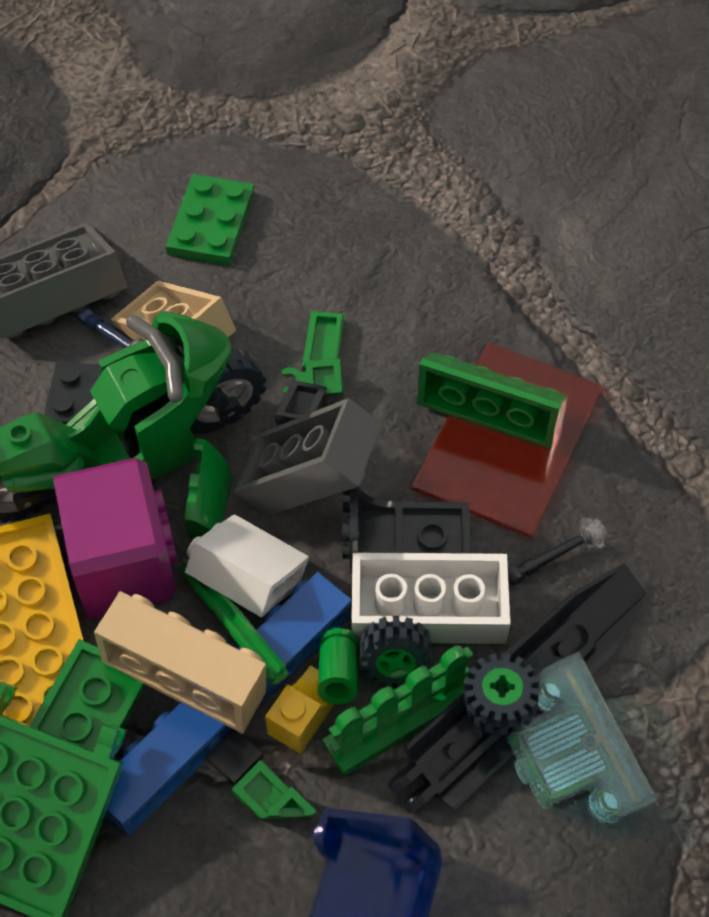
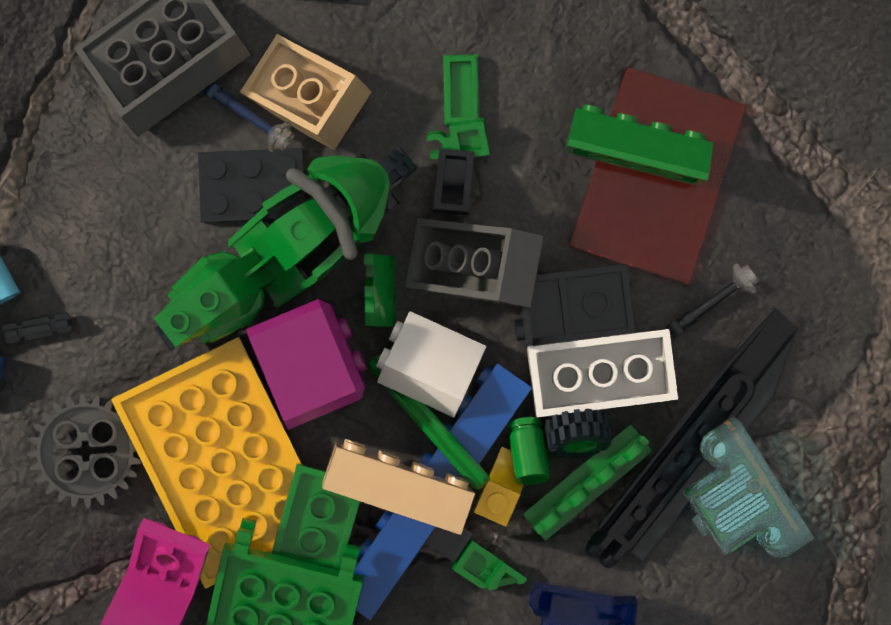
camera: 10 degrees left, 30 degrees up
(501, 708) = (665, 476): black wheel -> none

